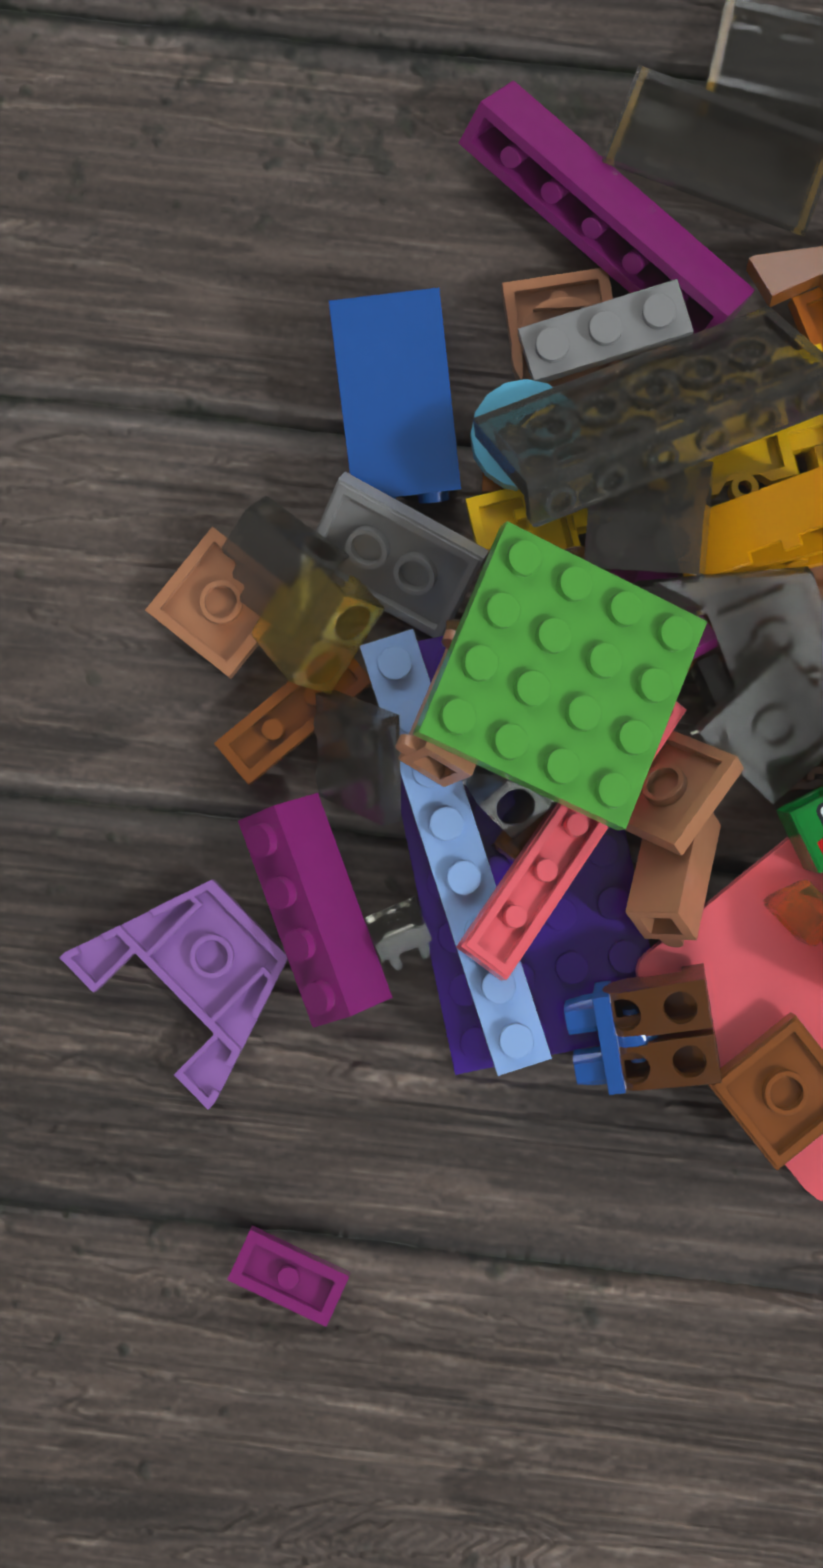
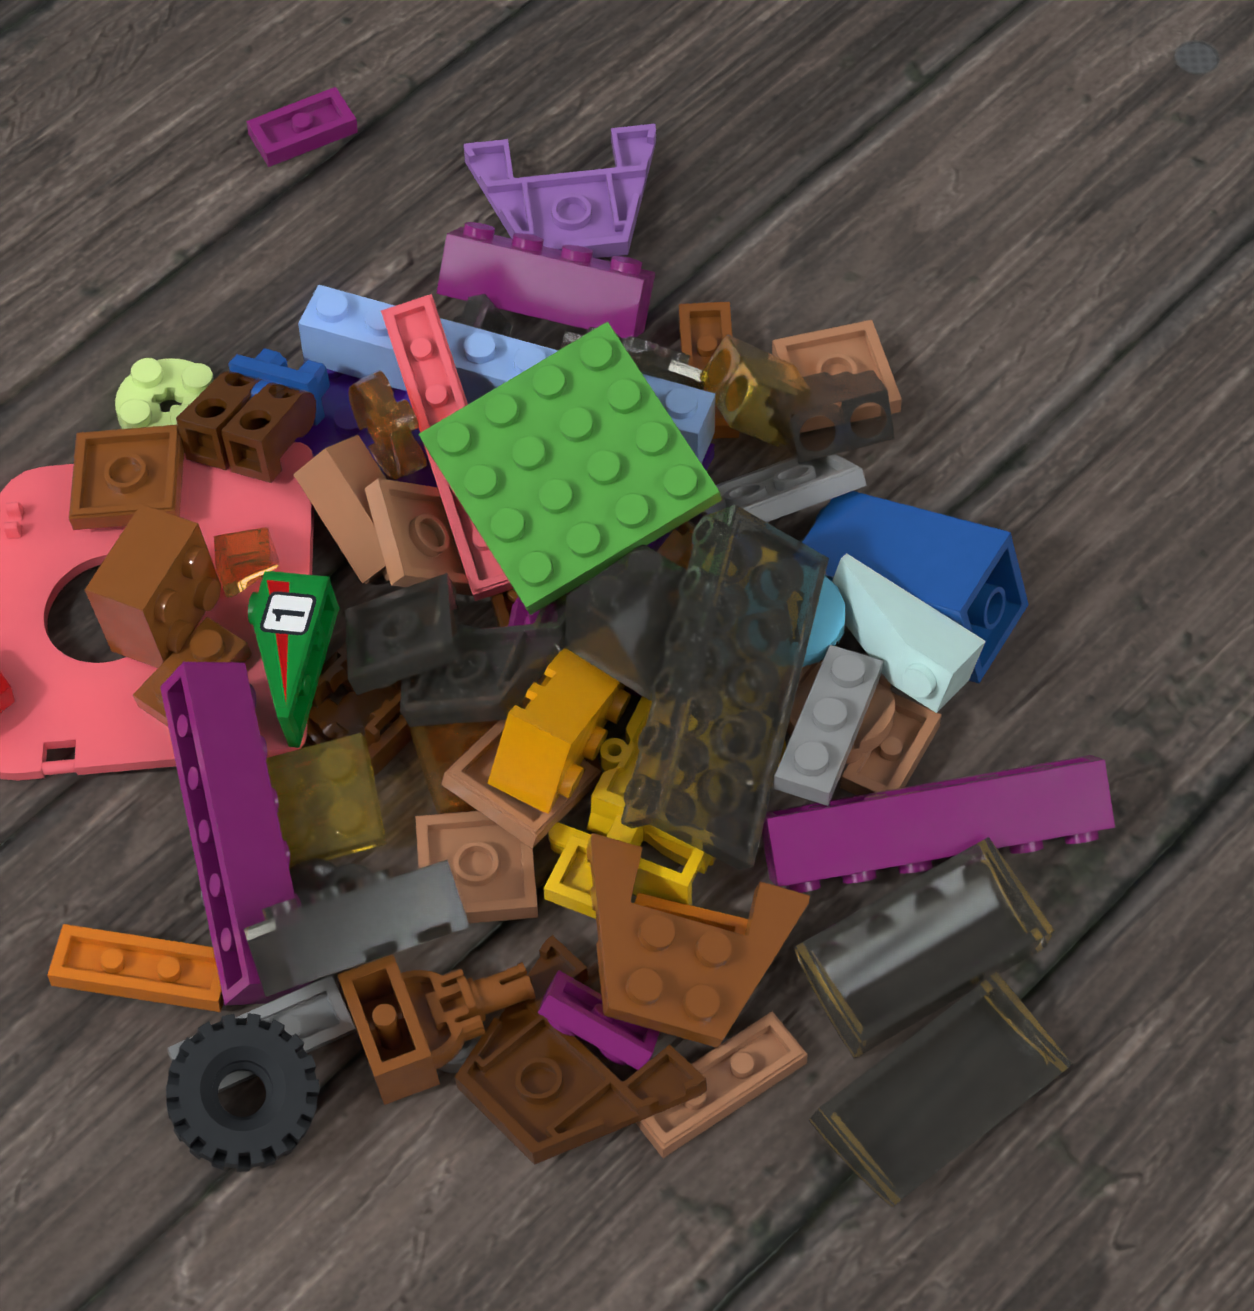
camera: 125 degrees right, 30 degrees down
(480, 325) = (918, 645): none -> light aqua slope
(586, 918) = (388, 424): none -> clear orange plate
(656, 1171) = (155, 382): none -> yellowish green plate

